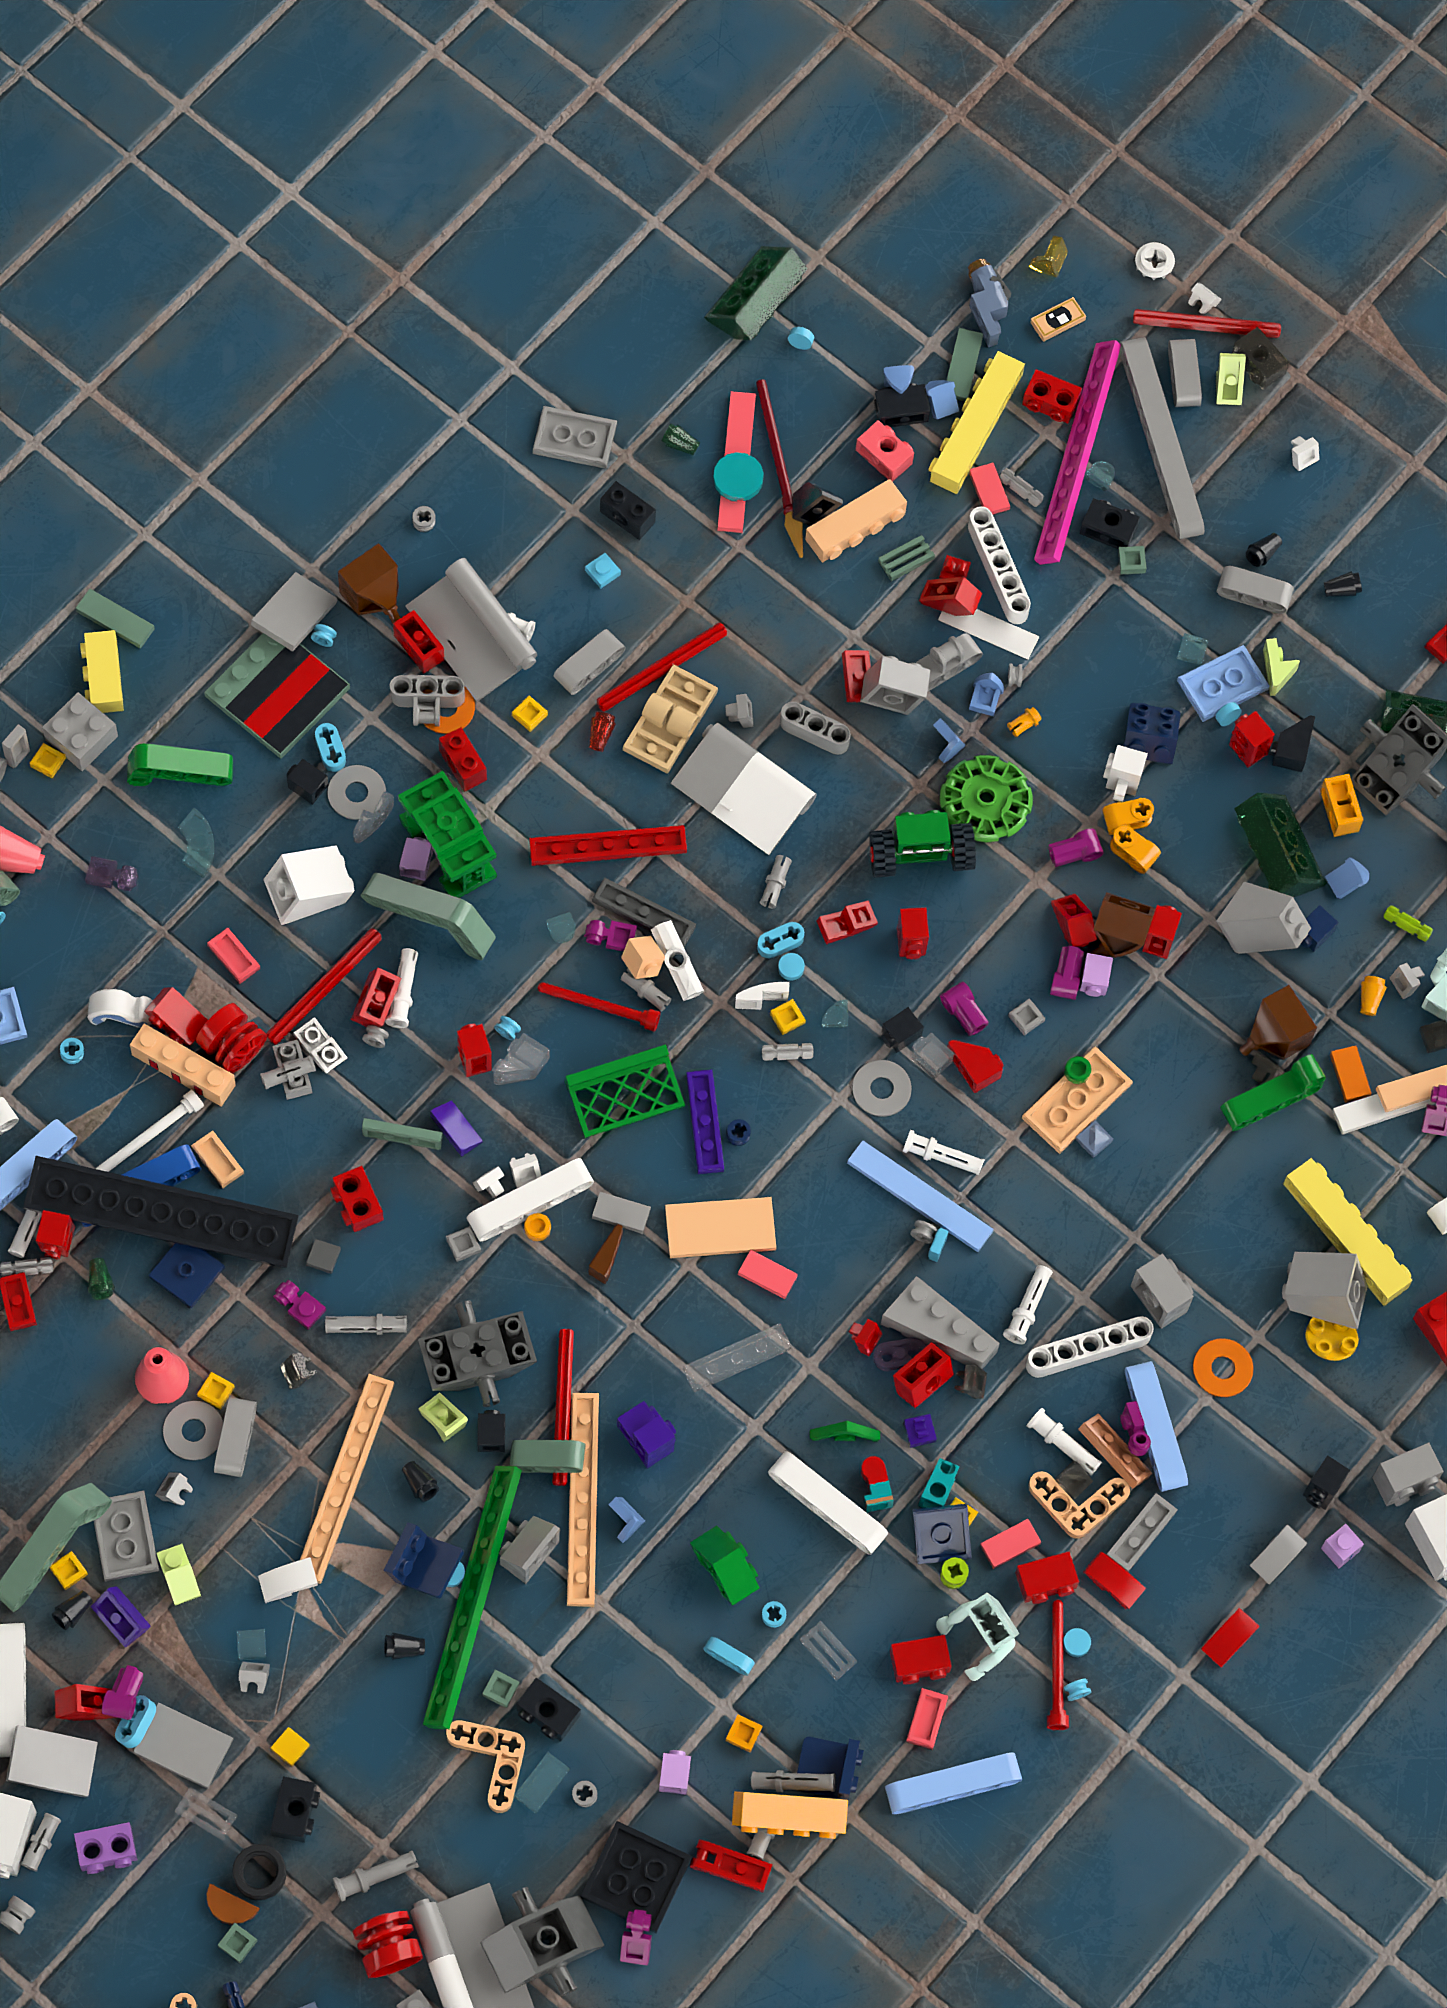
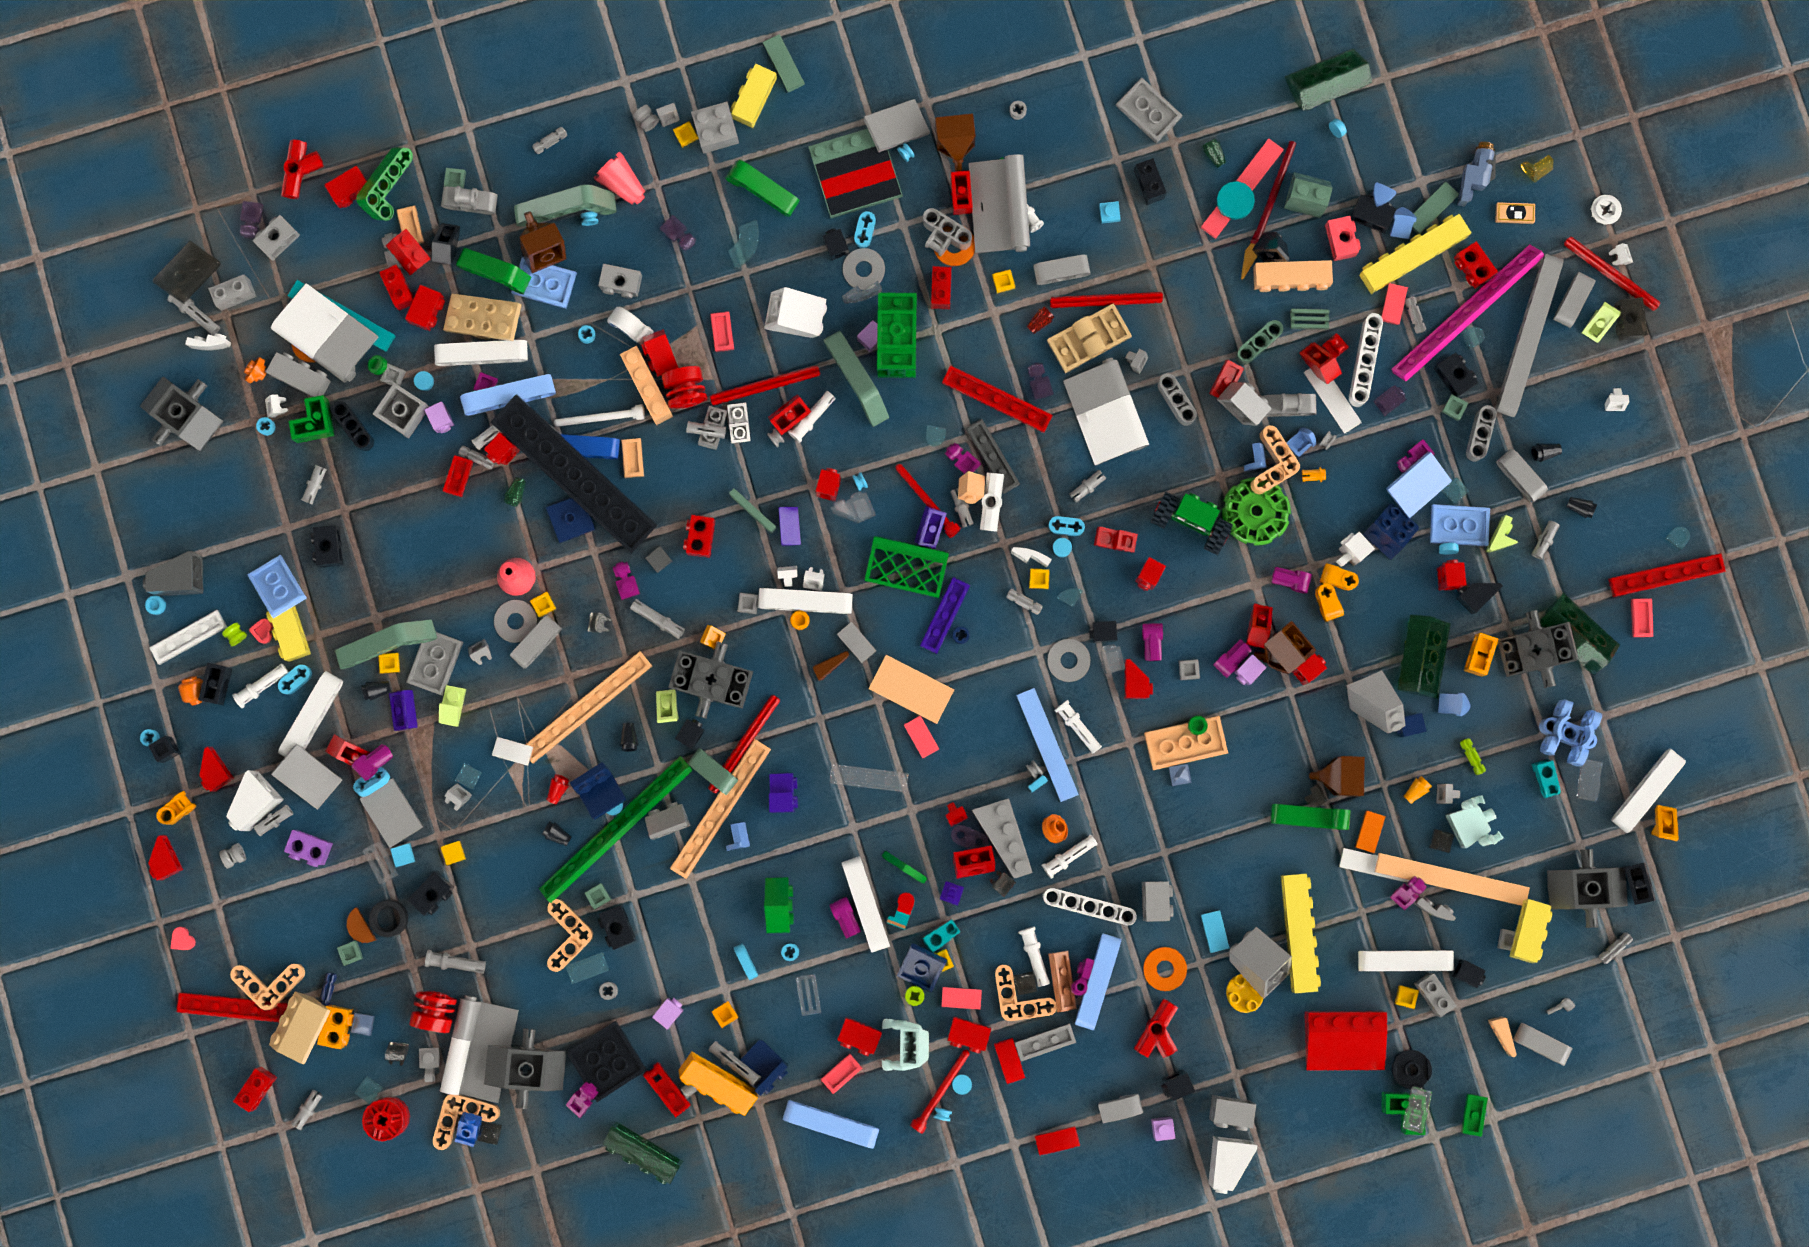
camera: 40 degrees right, 15 degrees up
(82, 954) = (611, 274): none -> light grey brick
(229, 1787) = (402, 855): none -> medium azure tile
(370, 1592) = (557, 788): none -> red cone
(444, 1305) = (712, 635): none -> light orange plate
(623, 1030) = (930, 527): none -> dark purple slope
(648, 804) = (1040, 386): none -> clear purple plate
(751, 1956) = (642, 1153): none -> clear green slope
(807, 1528) = (843, 913): none -> magenta piece
(817, 426) = (1308, 195): none -> sand green slope
(867, 603) = (1263, 334): none -> sand green beam
(981, 733) = (1281, 467): none -> light nougat beam
(991, 1282) = (1054, 828): none -> orange plate
(1055, 592) = (1390, 400): none -> clear purple brick
(1126, 633) = (1415, 454): none -> magenta plate
(1148, 664) = (1418, 484): none -> light blue tile
(1179, 581) = (1485, 425): none -> light grey beam
(1251, 1289) = (1215, 931): none -> medium azure tile
(1273, 1446) = (1161, 1039): none -> red piece
(1327, 644) = (1545, 540): none -> light grey pin

